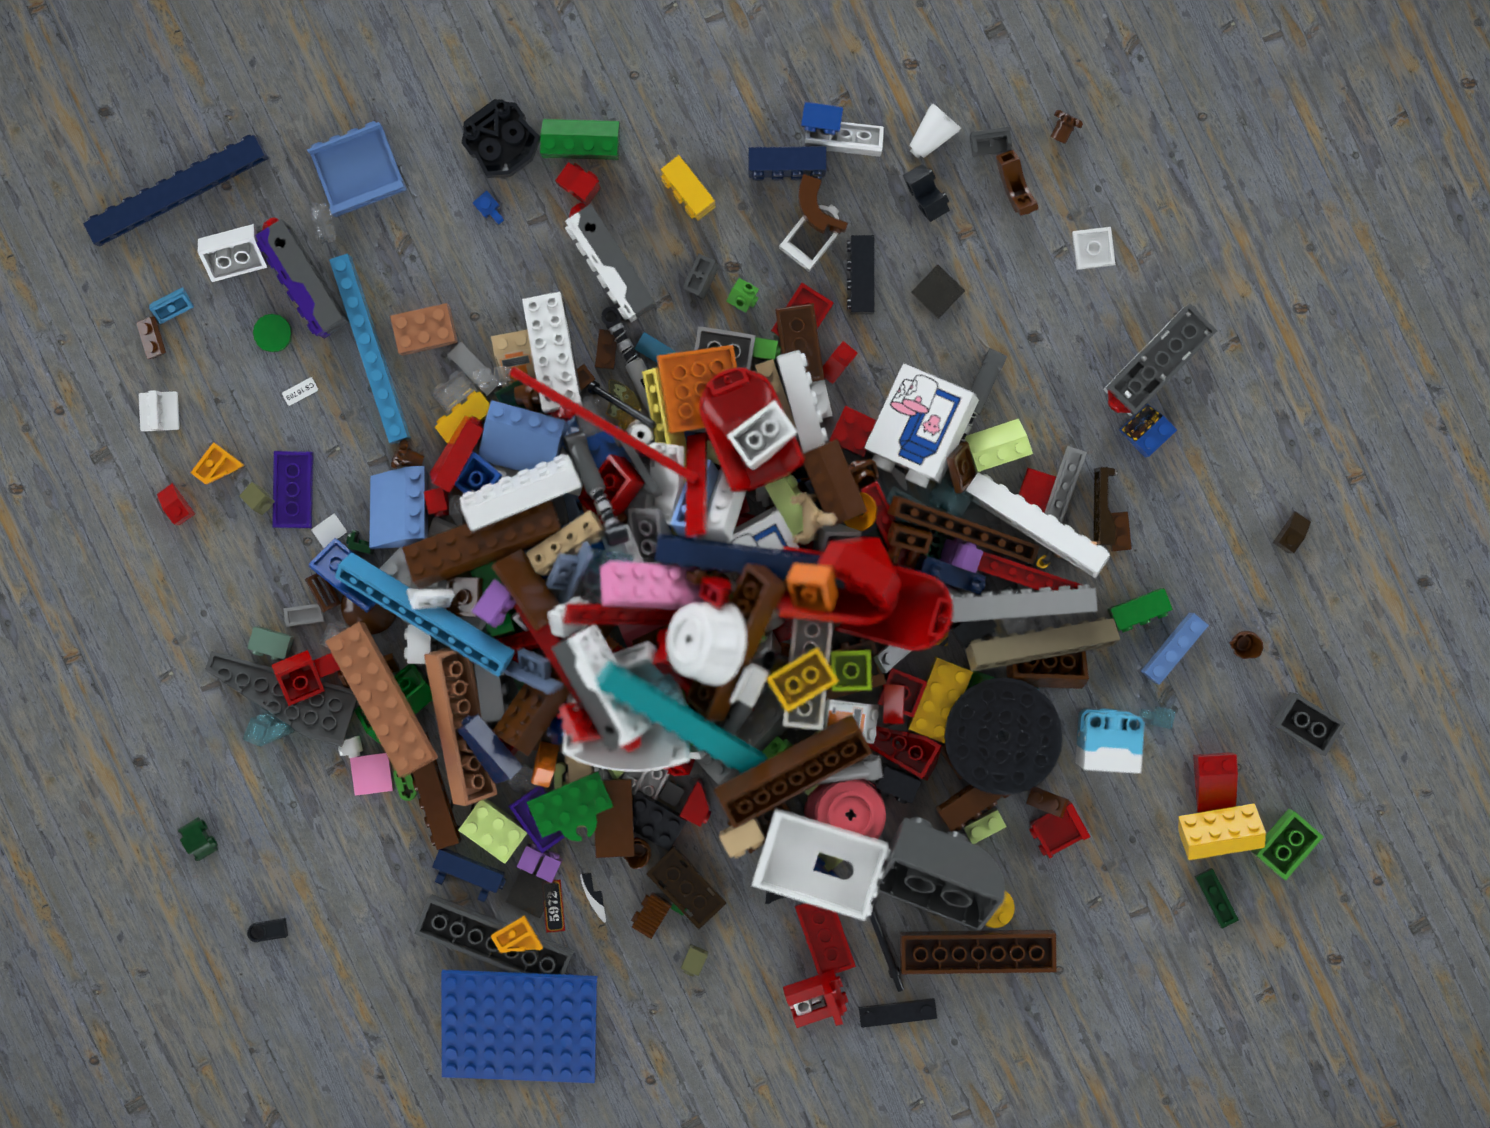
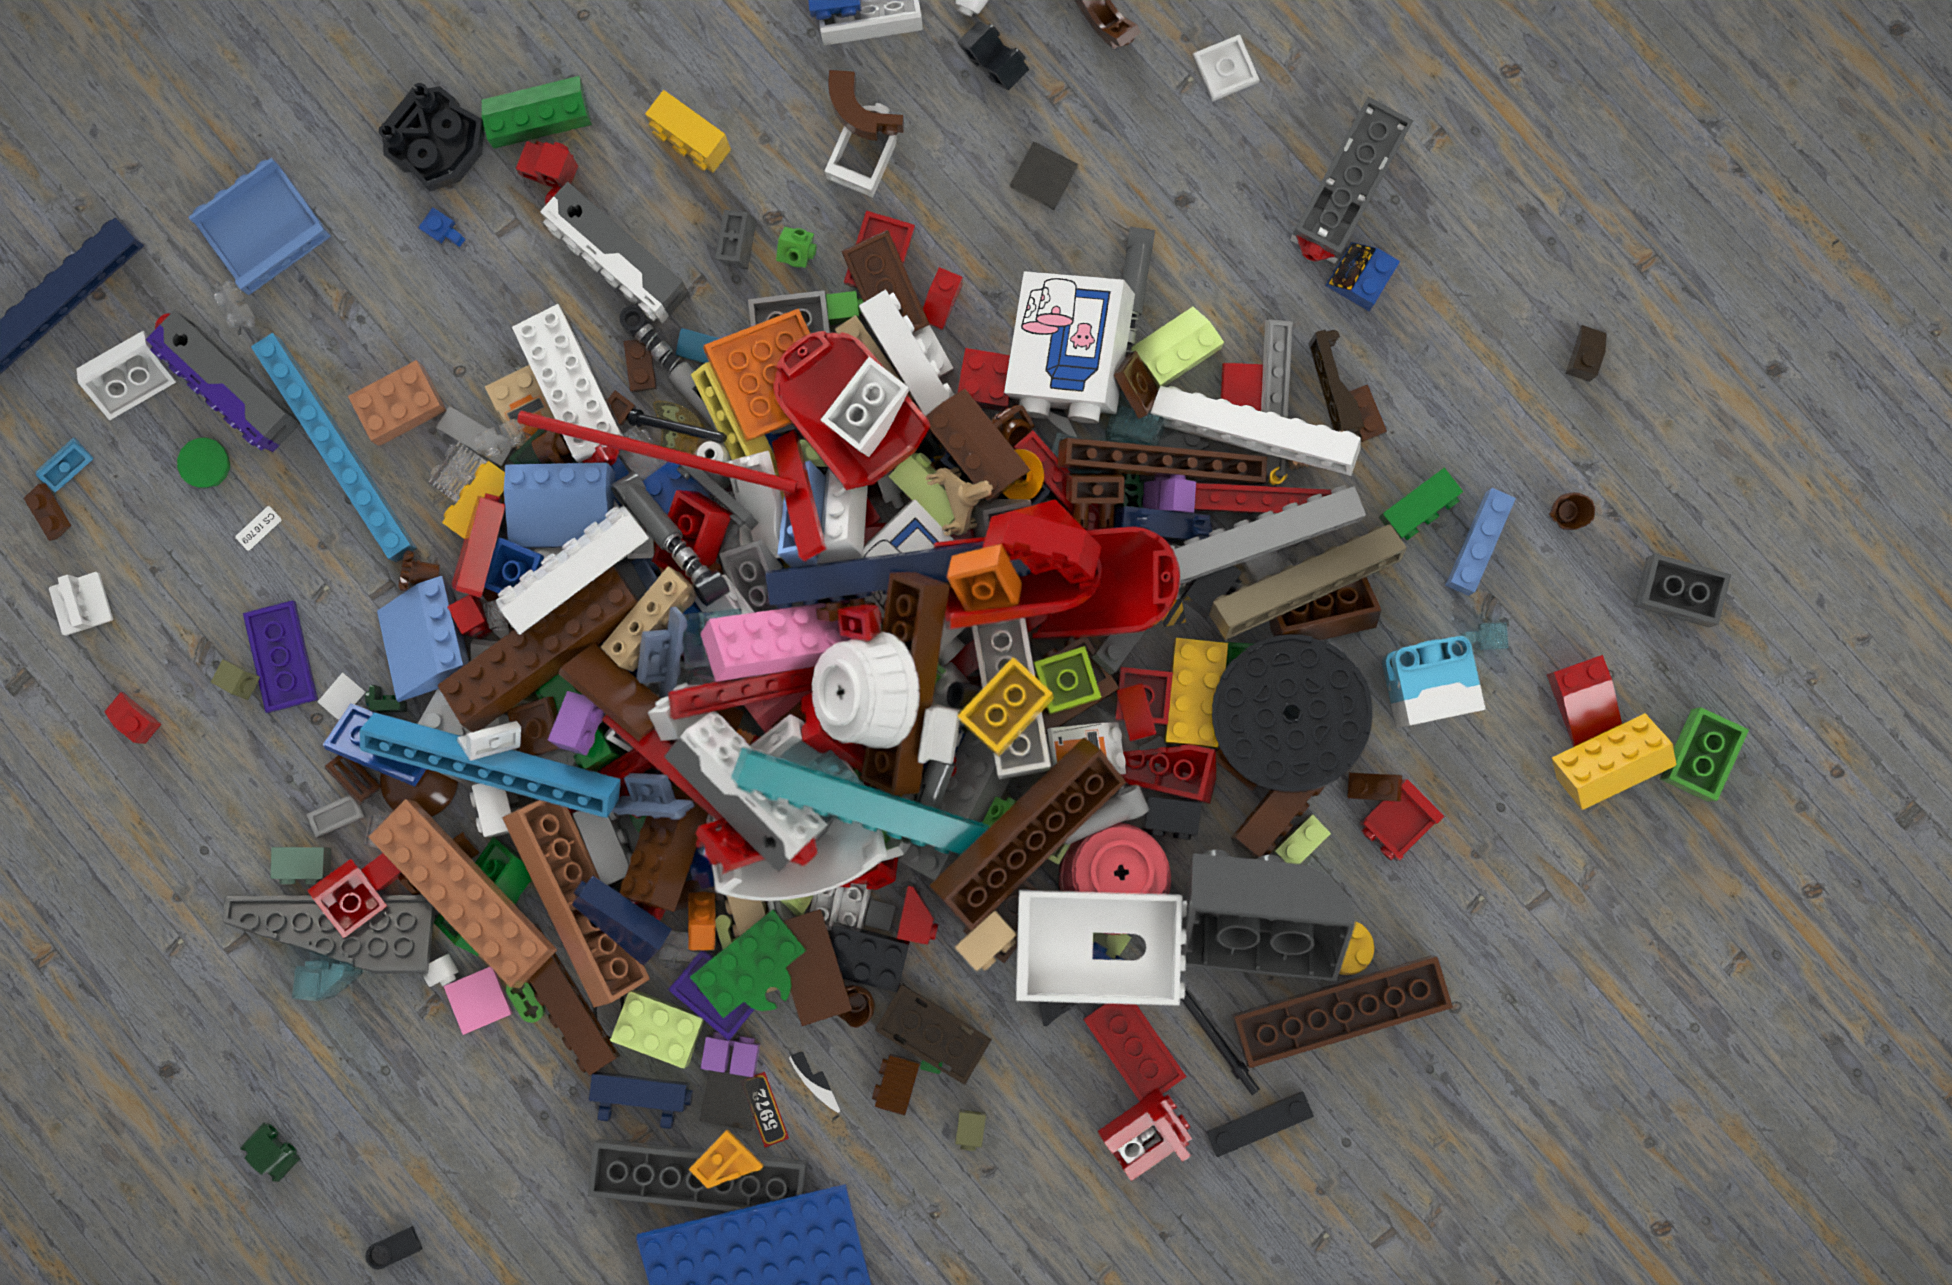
camera: 10 degrees left, 5 degrees down
(215, 464) = (171, 652): light orange wing -> none
(786, 162) = (803, 64): dark blue brick -> none
(861, 274) = (940, 179): black brick -> none
(1216, 898) = (1633, 852): dark green plate -> none

